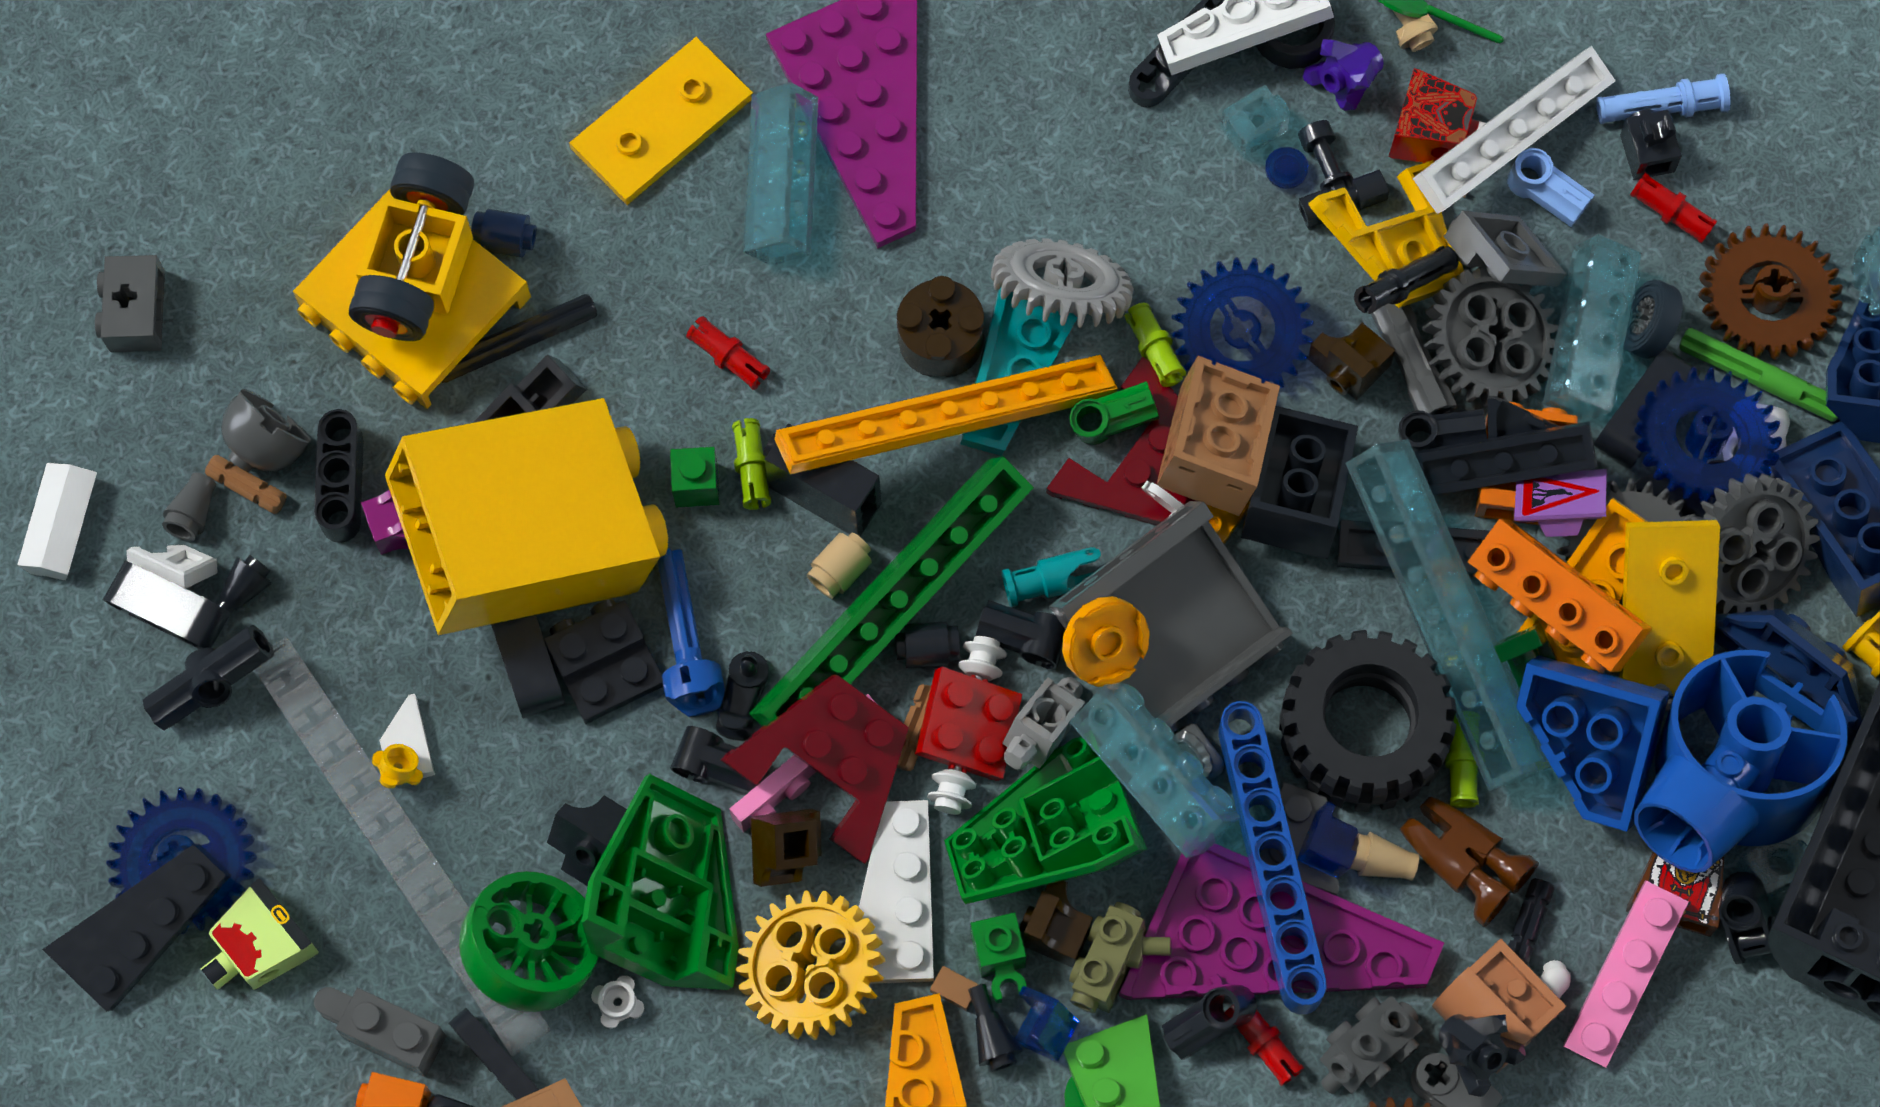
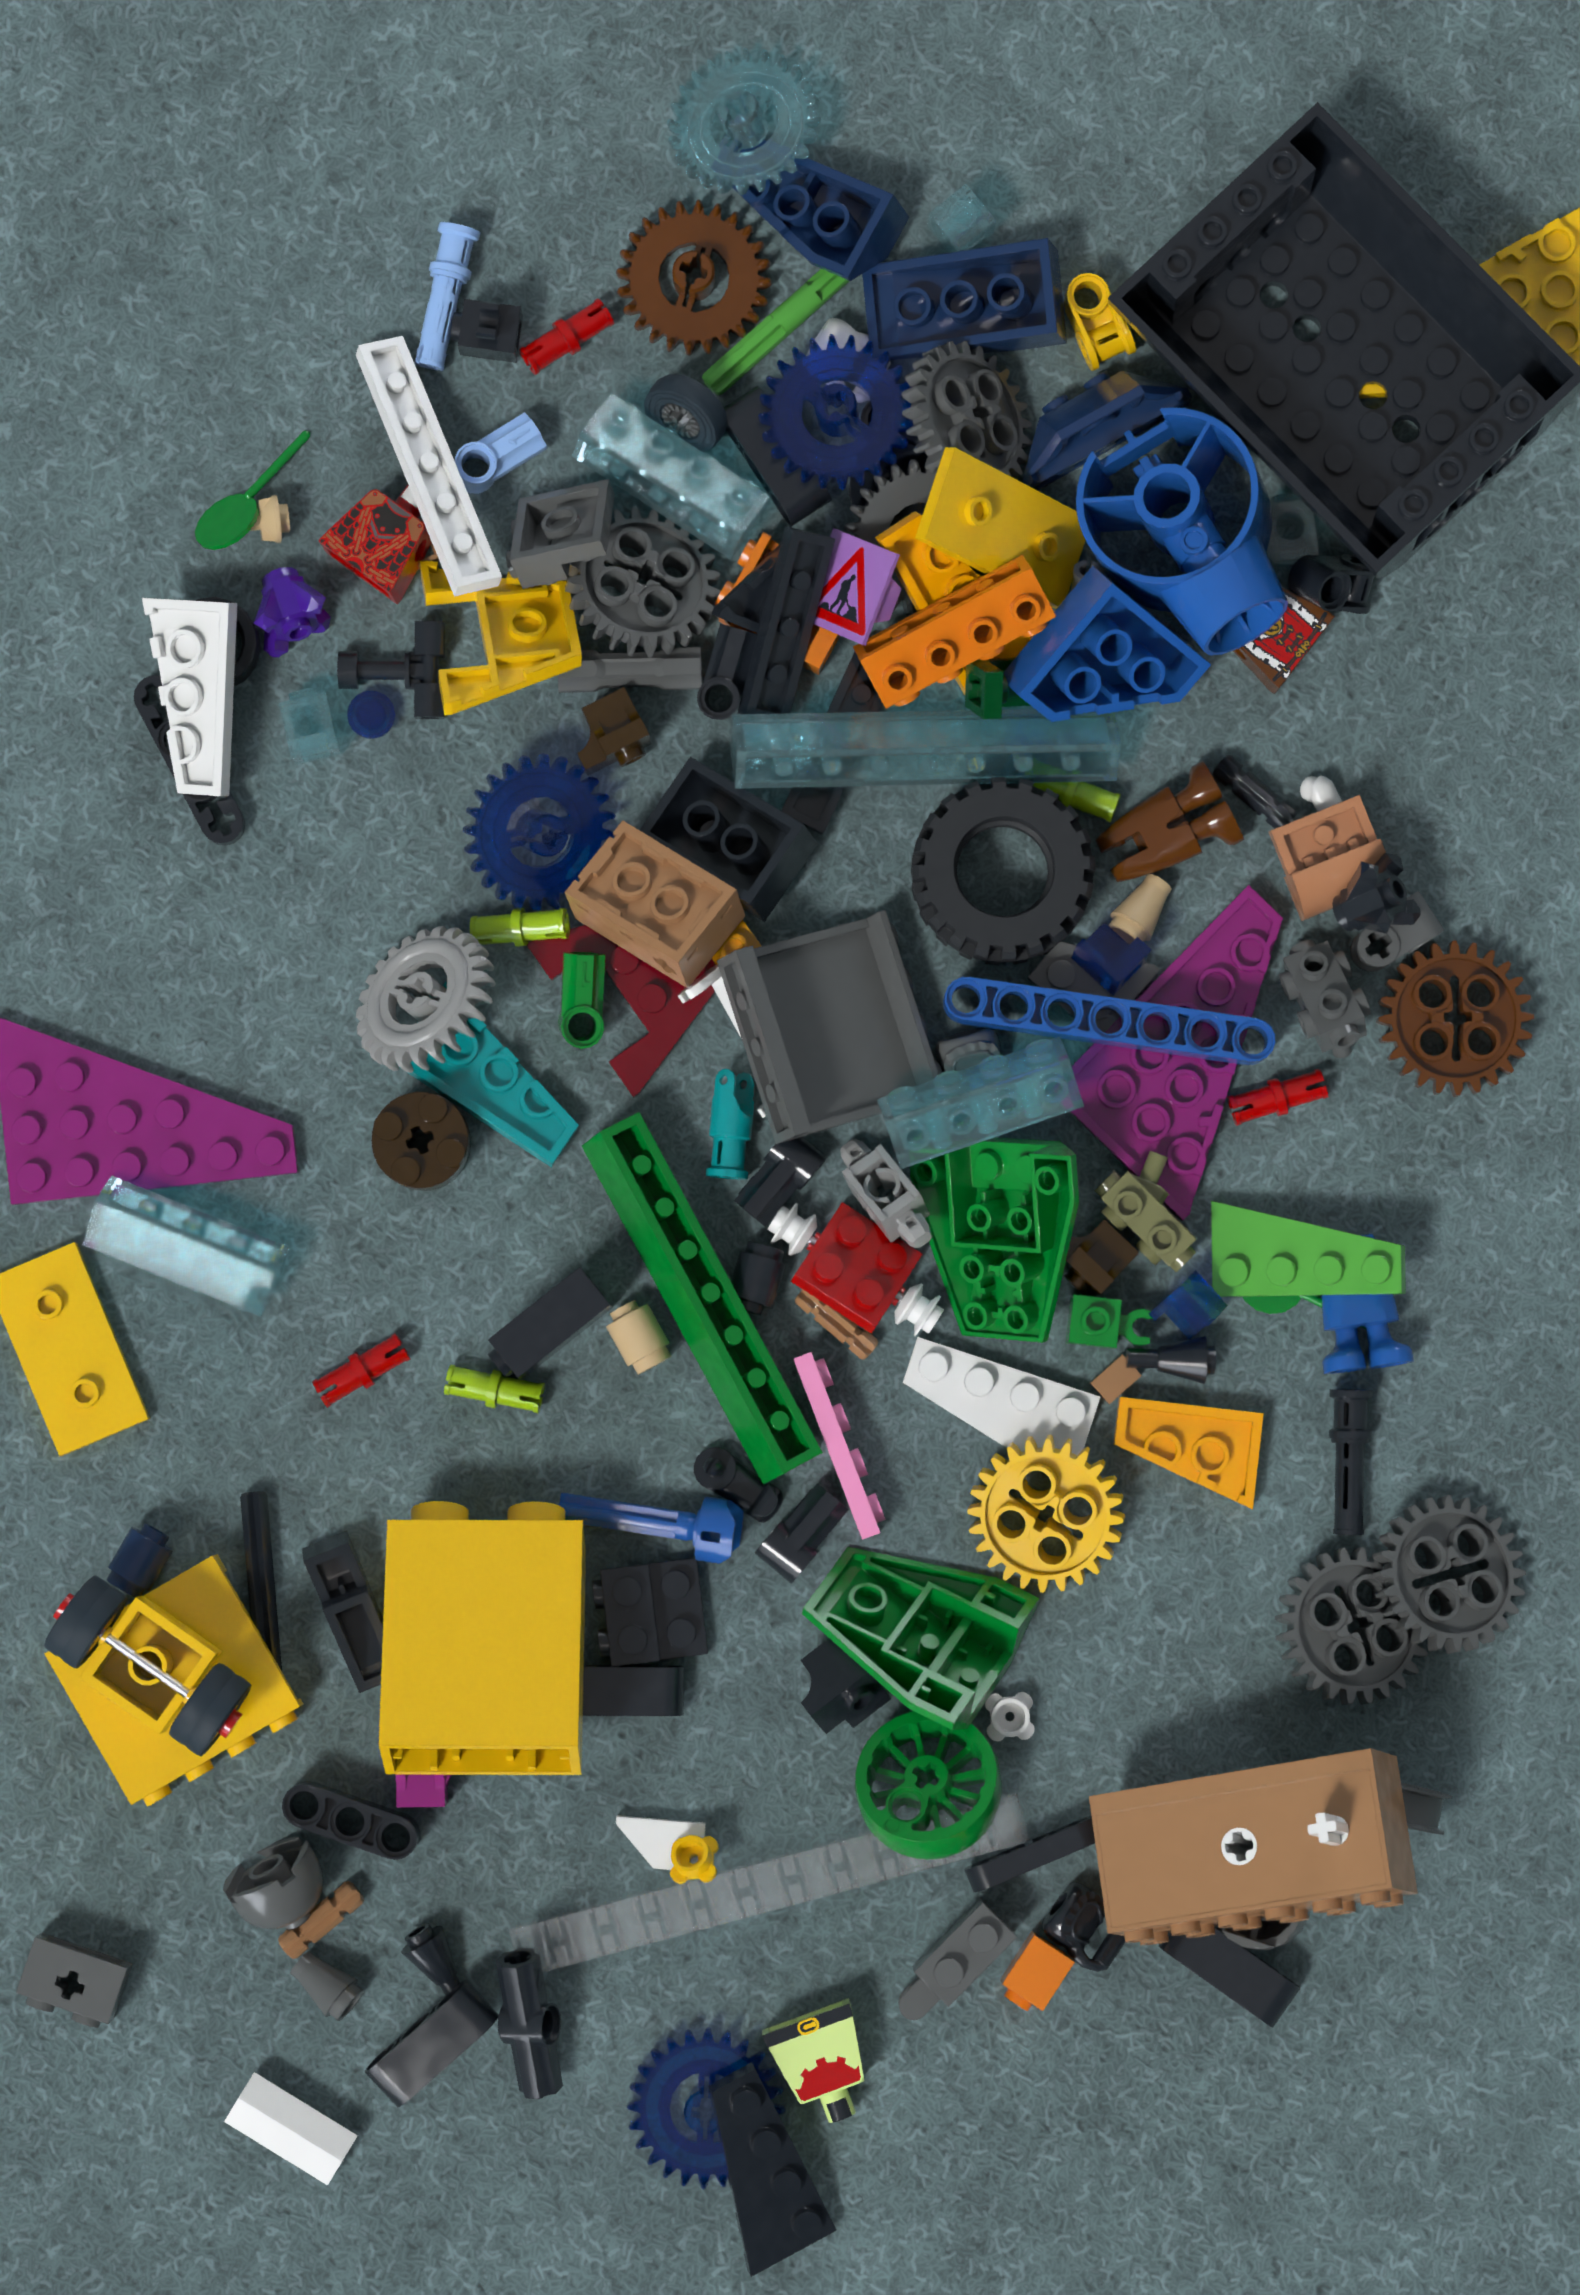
camera: 75 degrees left, 15 degrees up
(178, 565) = (386, 2021): white tile -> none
(694, 477) = (490, 1452): green brick -> none
(784, 845) = (917, 1495): dark brown brick -> none
(844, 741) = (833, 1403): dark red wing -> none
(943, 414) = (529, 1173): light orange tile -> none
(1105, 641) = (837, 1102): light orange tile -> none
(1207, 1020) = (1245, 1144): black piece -> none
(1396, 284) = (567, 661): black pin -> none
(1625, 973) = (1344, 722): bright pink plate -> none

